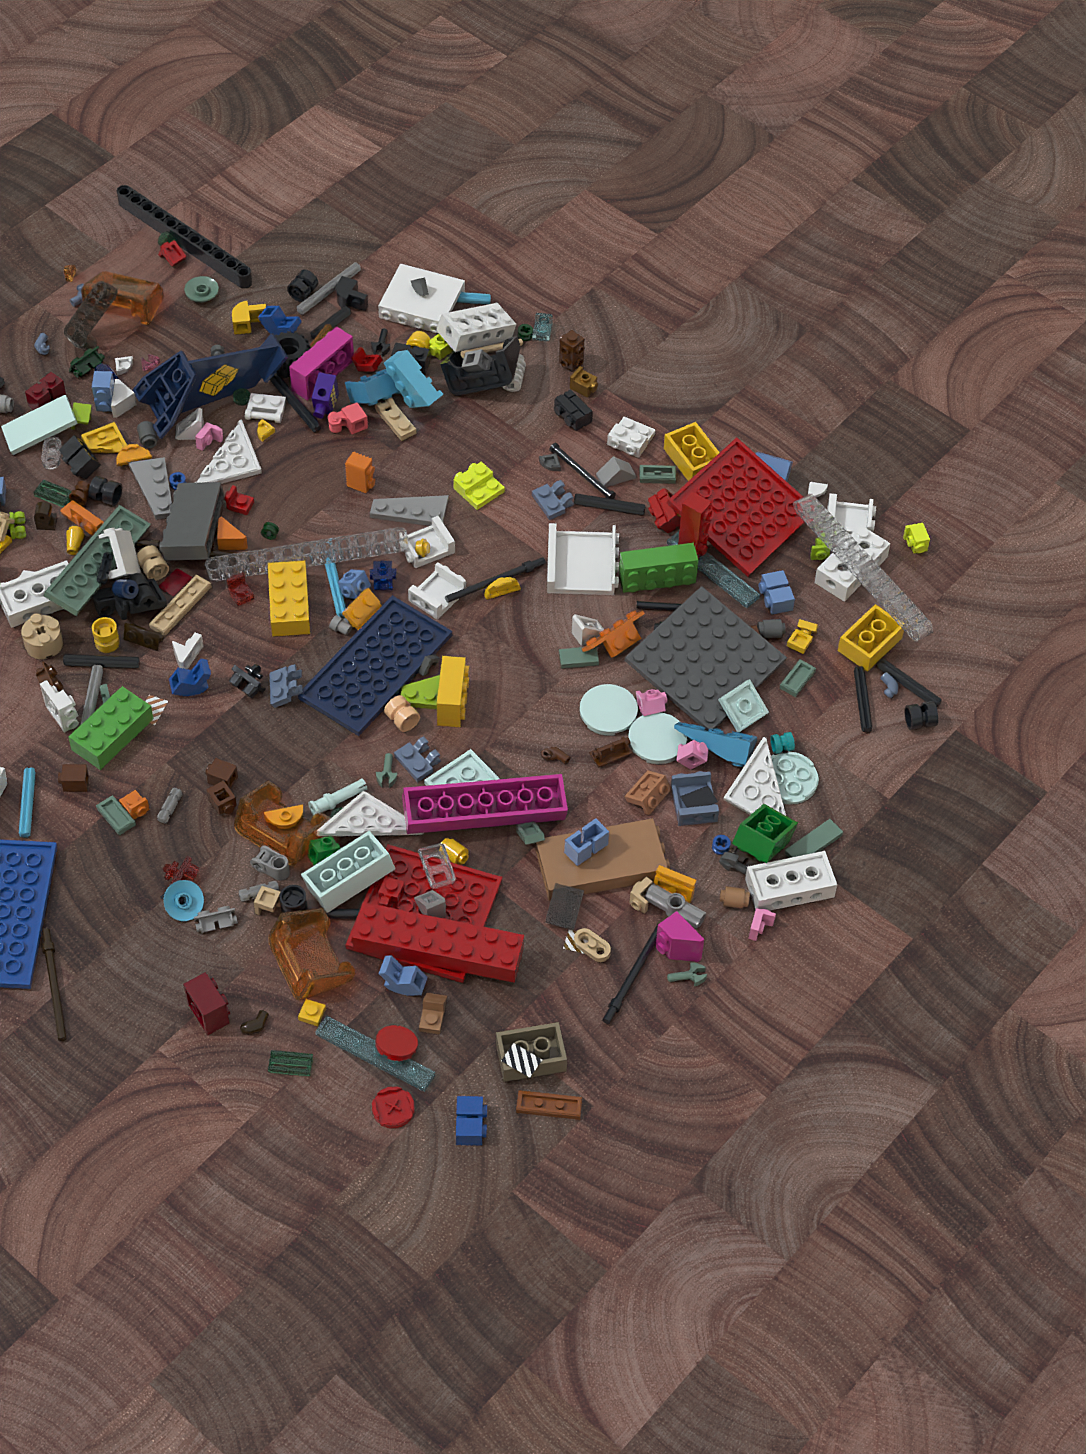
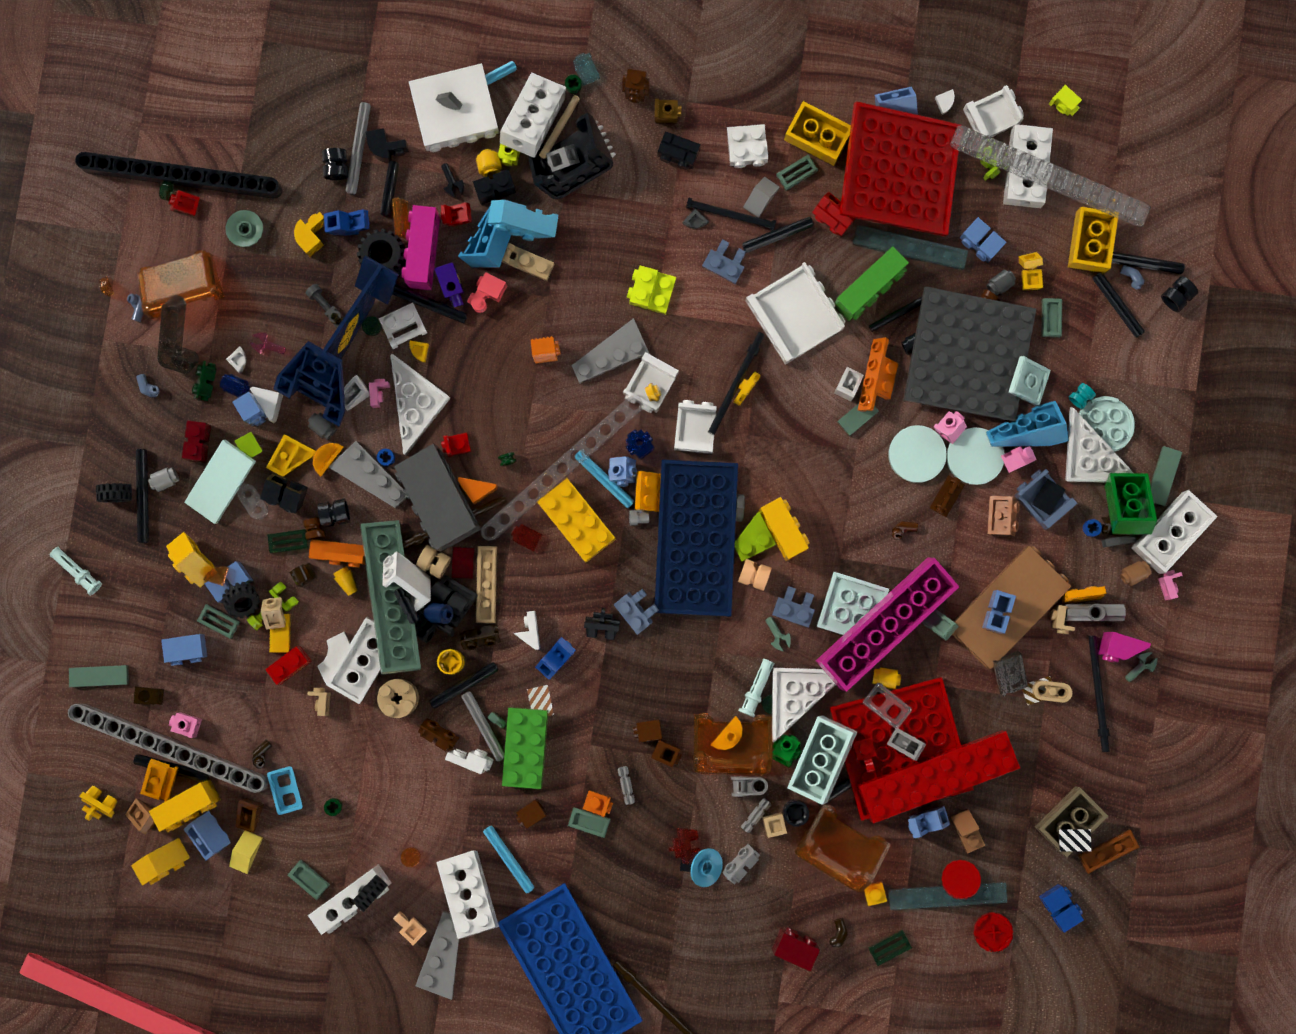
camera: 25 degrees left, 30 degrees up
(695, 522) = (887, 230): red brick -> none

